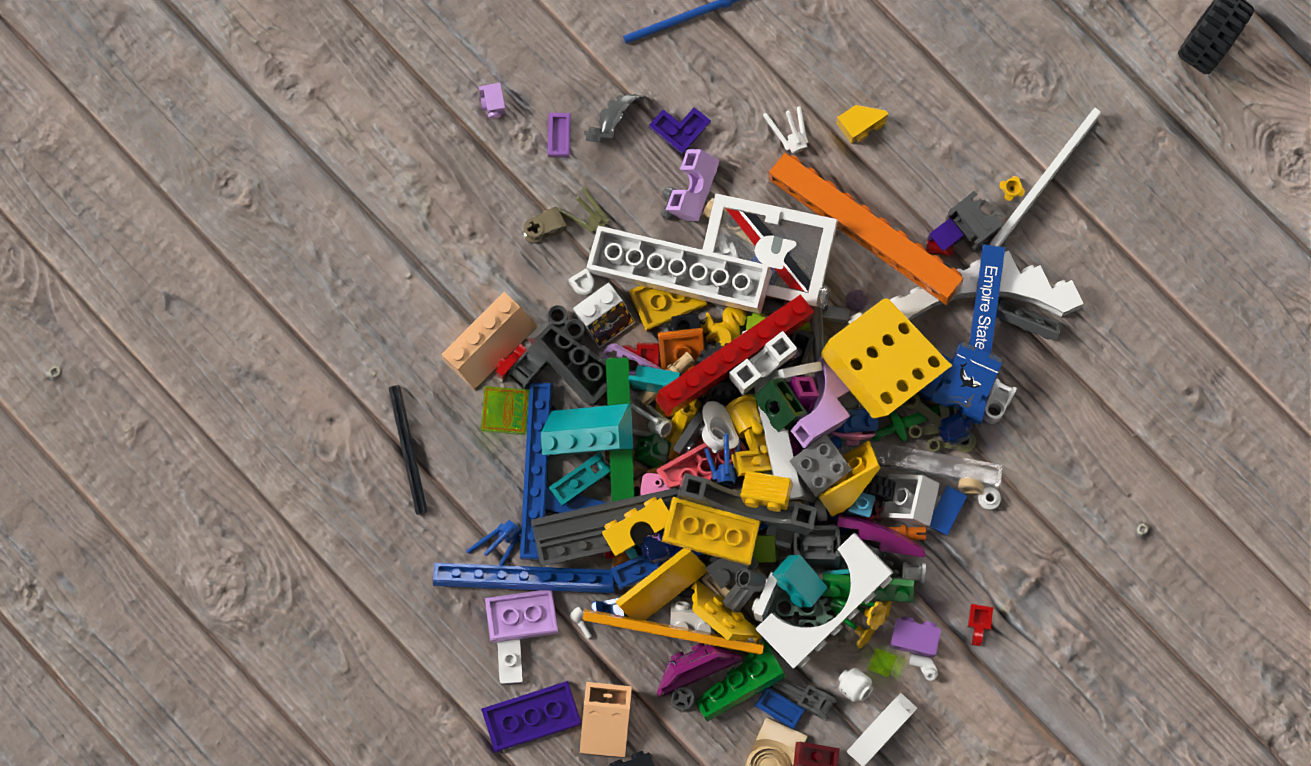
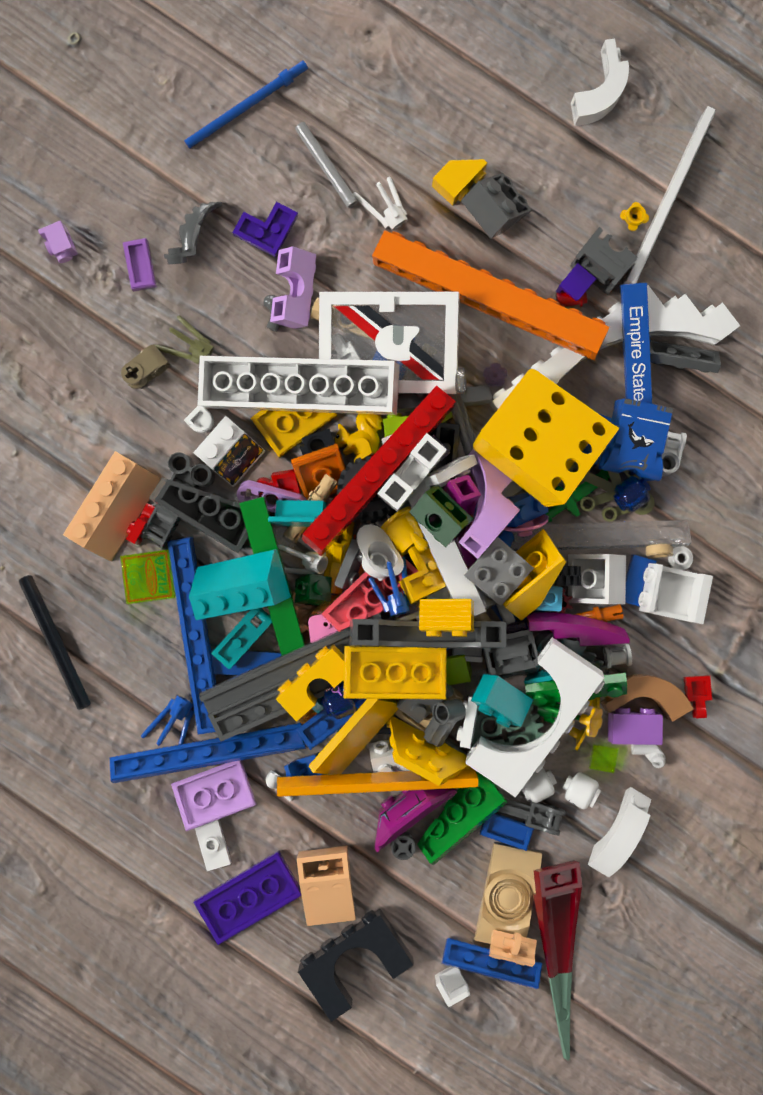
camera: 10 degrees left, 10 degrees up
(745, 84) = (326, 165): none -> light grey piece
(817, 670) = (540, 786): none -> white head
(889, 151) = (496, 204): none -> dark grey slope
(940, 607) = (667, 696): none -> medium nougat arch
(976, 527) = (675, 593): none -> white panel
(1002, 82) = (597, 103): none -> white arch

